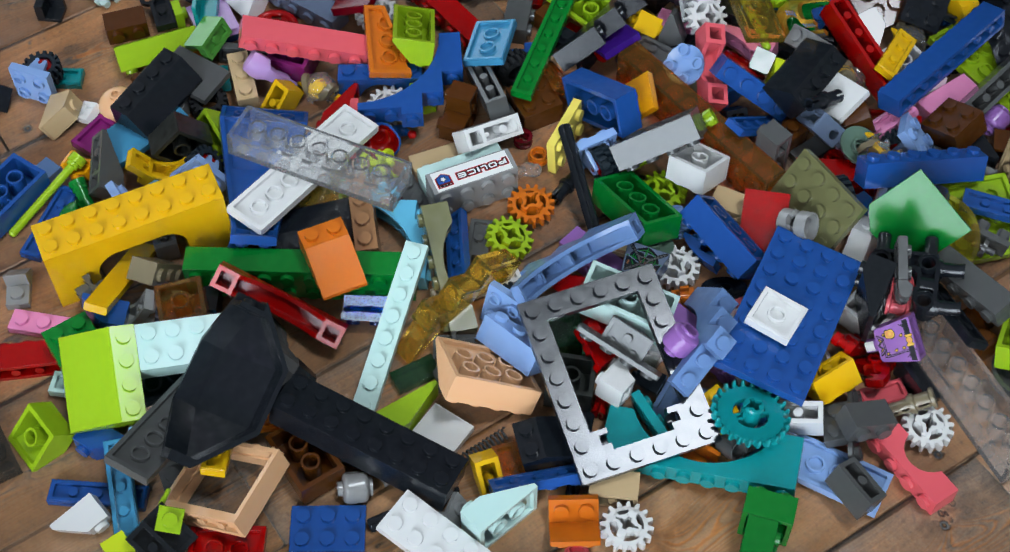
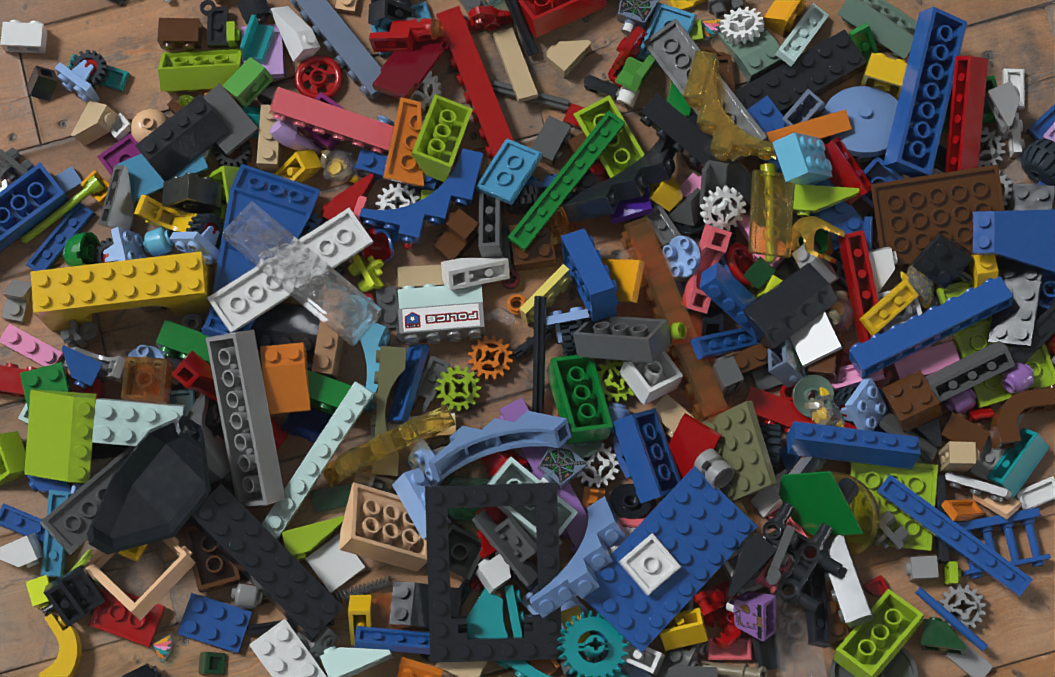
camera: 20 degrees right, 20 degrees up
(80, 189) = (92, 215): green pin -> none
(116, 283) = (94, 341): yellow tile -> none
(154, 271) = (133, 334): dark tan brick -> none
(169, 519) = (83, 584): lime plate -> none
(301, 302) = (245, 418): none -> light grey brick
(680, 340) = (552, 568): medium lavender head -> none
(823, 100) = (793, 344): black pin -> none

